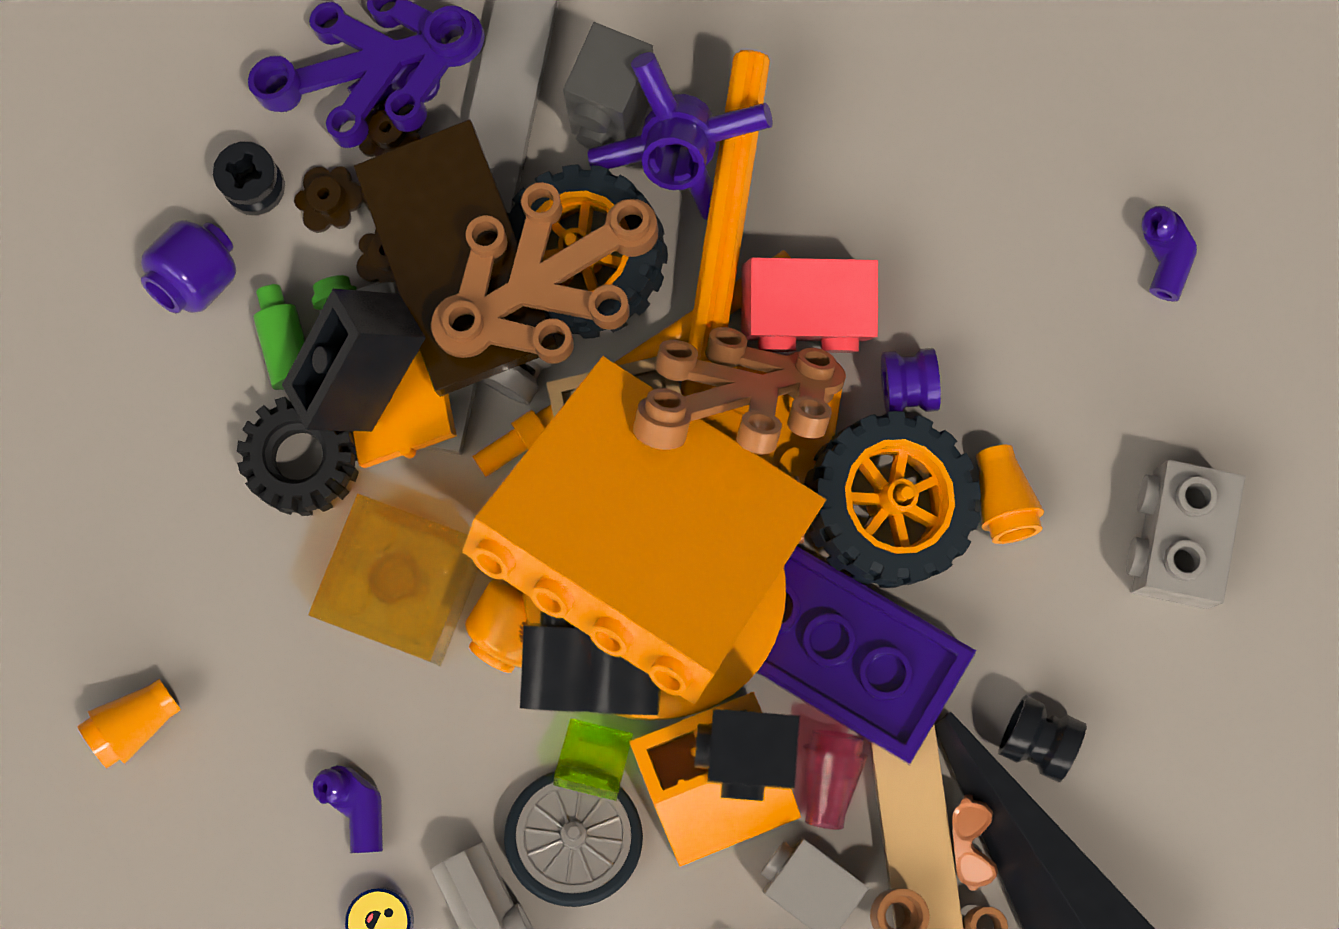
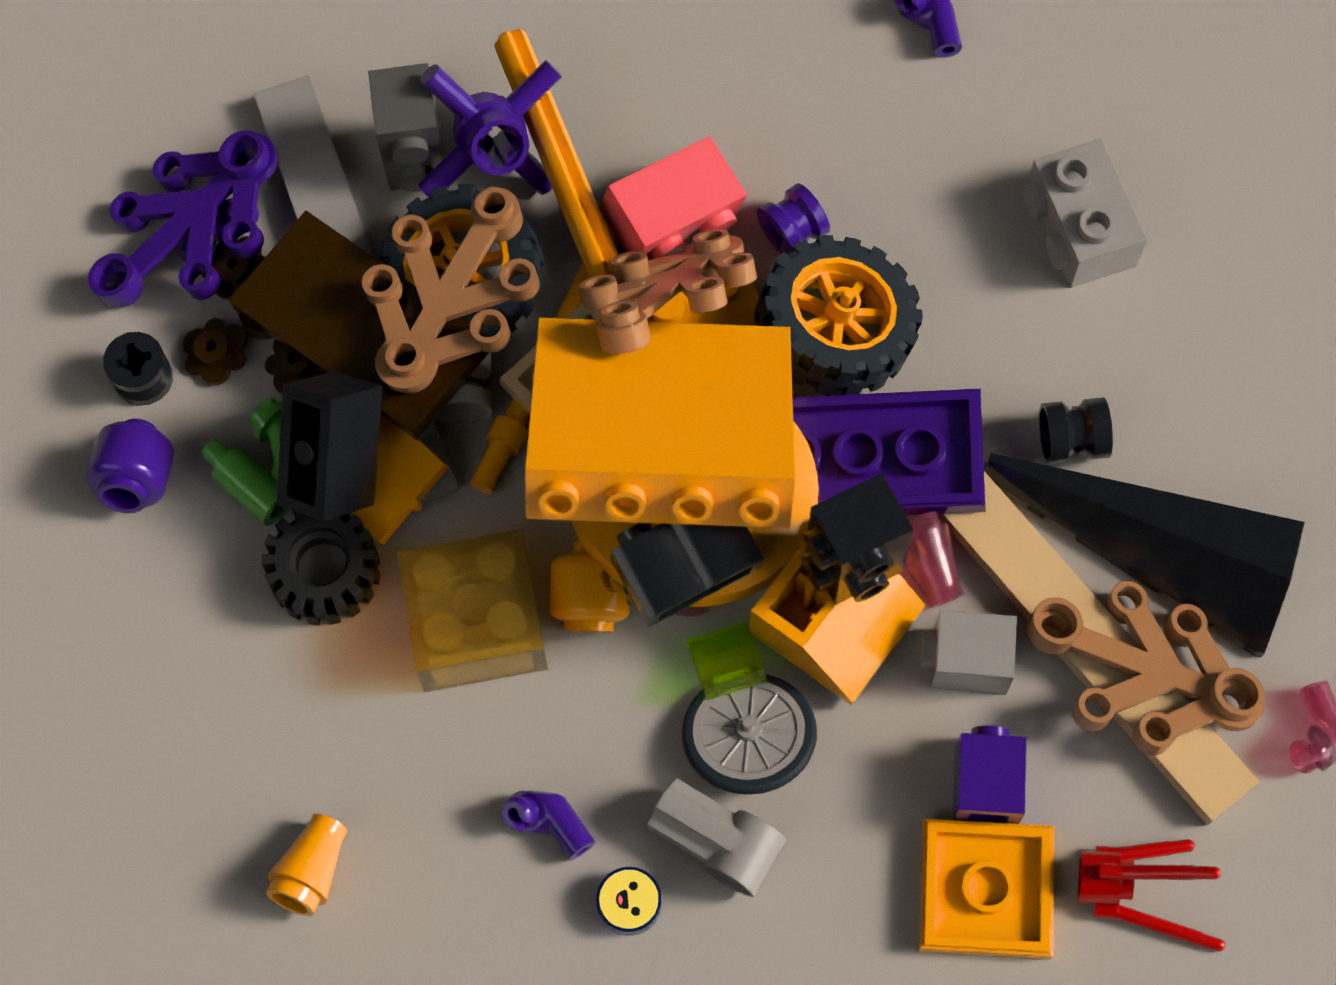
camera: 35 degrees left, 10 degrees down
(968, 823) = (1061, 526): nougat piece -> none
(1007, 499) = (933, 269): light orange cone -> none

